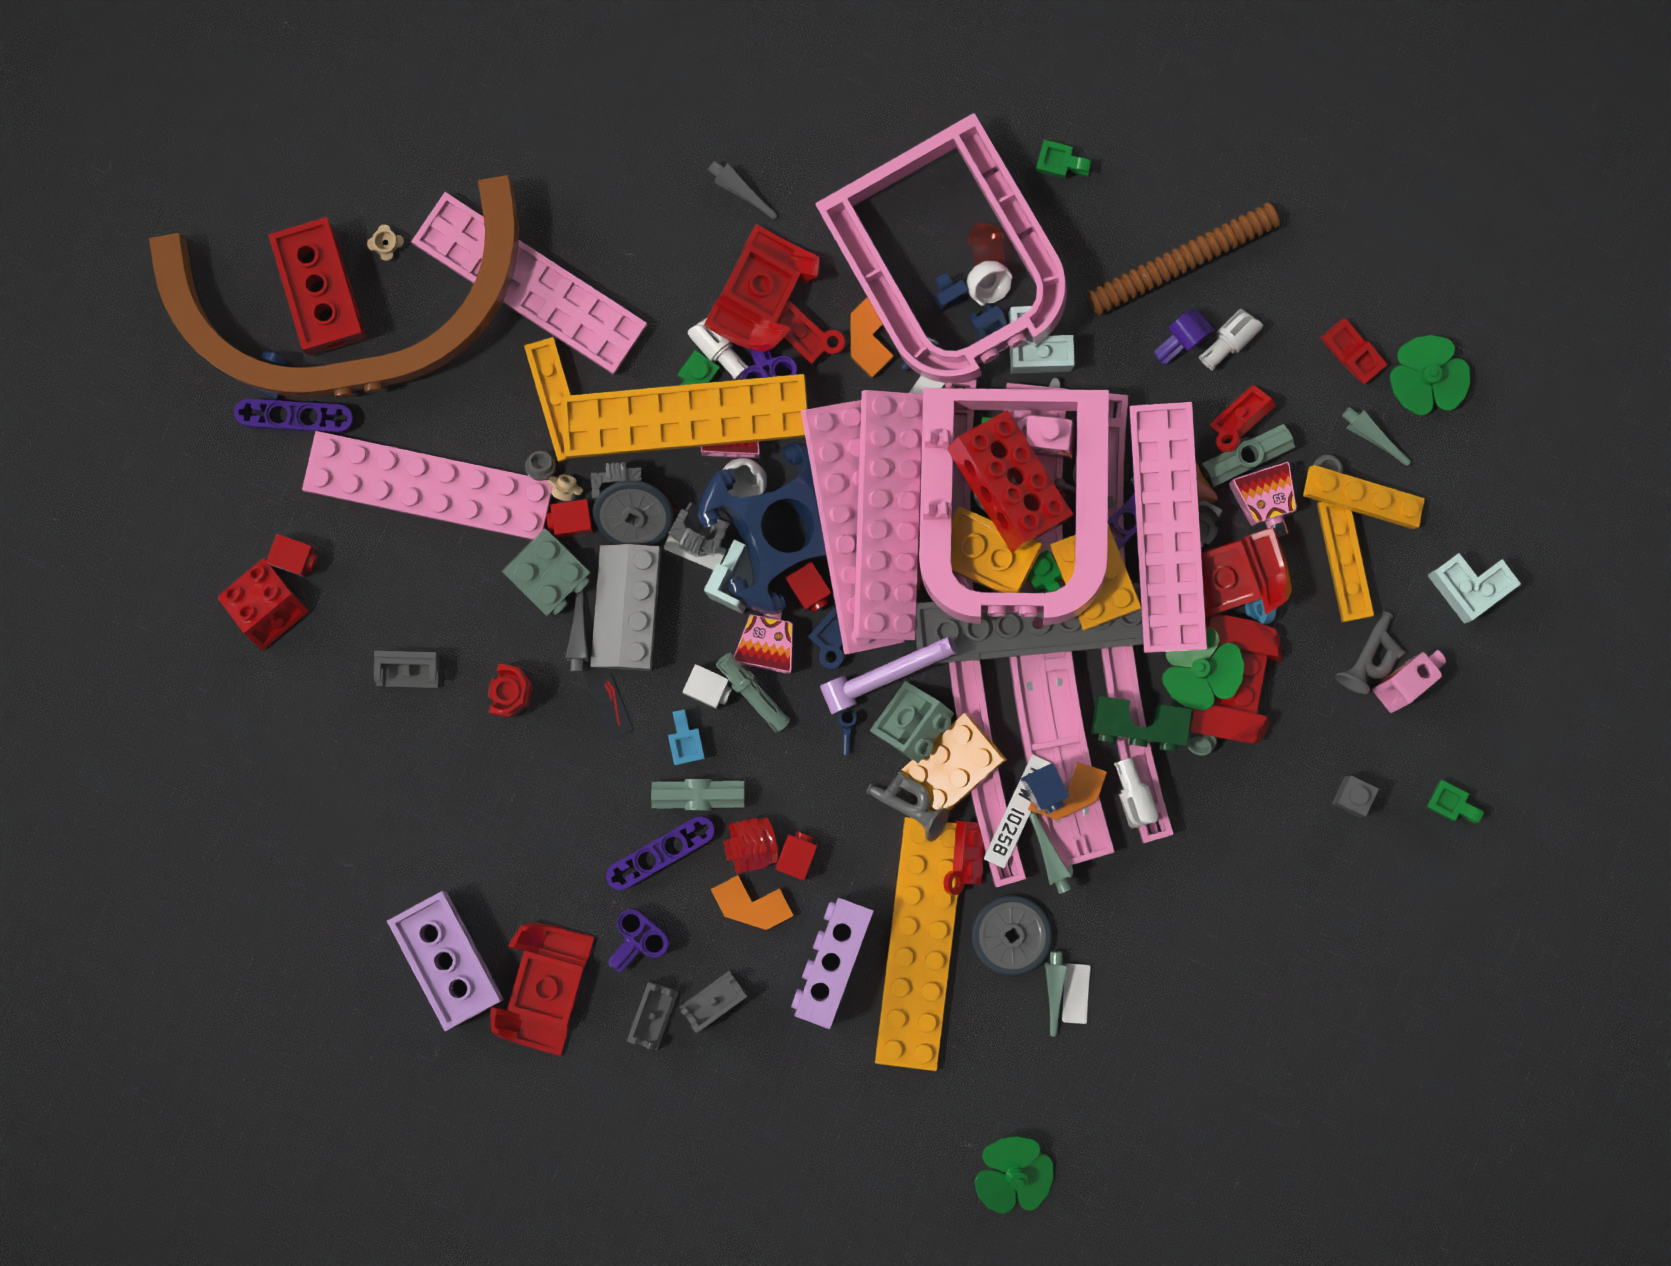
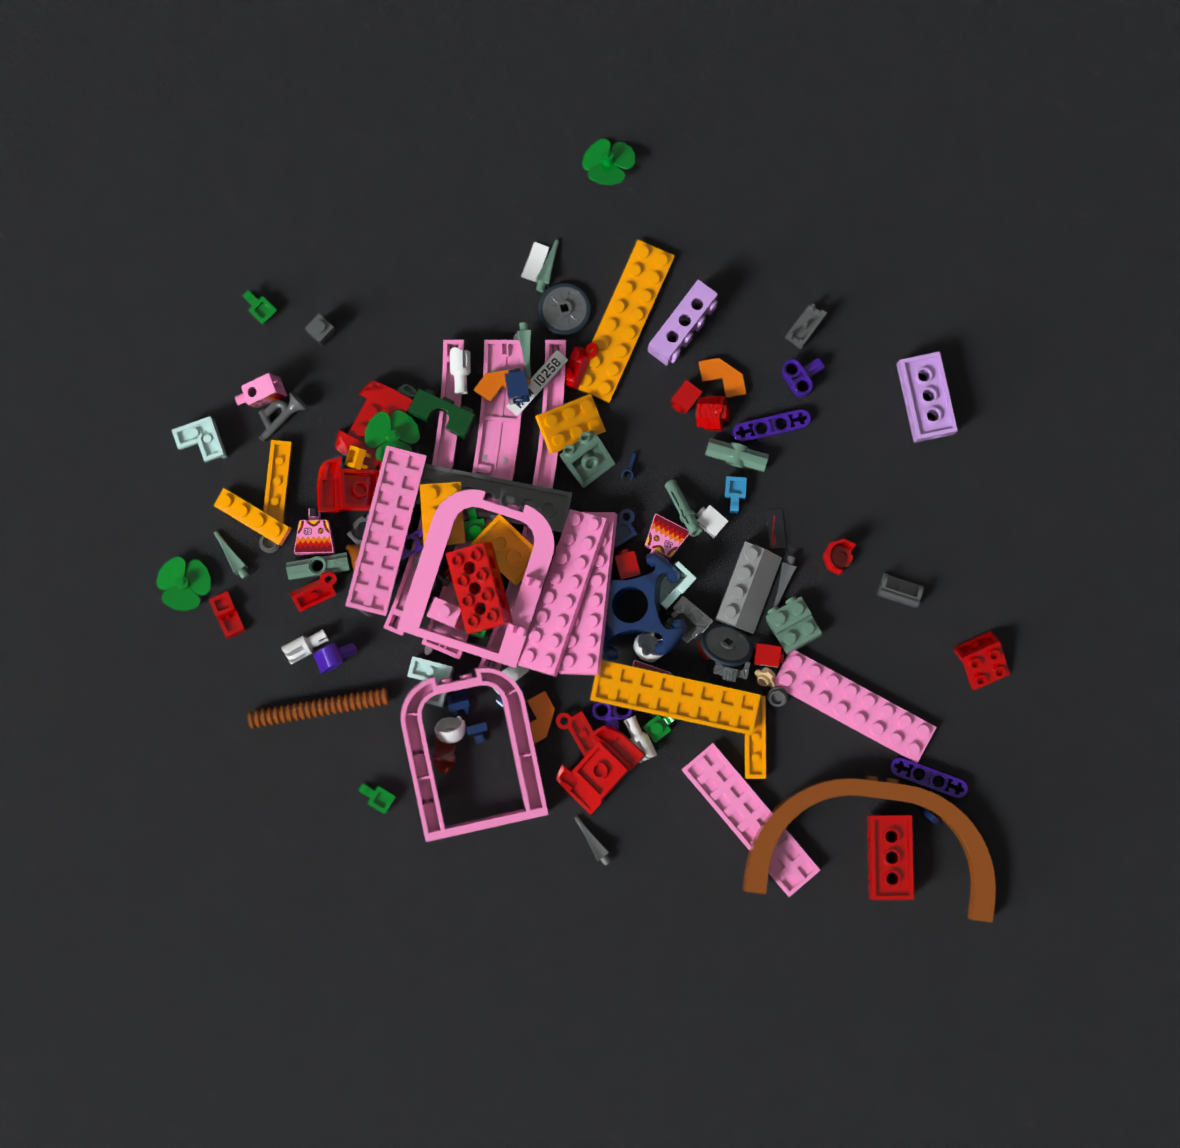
camera: 160 degrees left, 0 degrees up
(292, 556) = (954, 685): red brick -> none
(376, 242) = (843, 876): tan plate -> none
(543, 987) = (868, 364): red piece -> none
(713, 1001) = (764, 322): dark grey hinge -> none
(842, 693) = (626, 491): lavender piece -> none
(932, 821) = (594, 391): dark grey piece -> none
(1244, 621) = (355, 458): none -> light orange tile

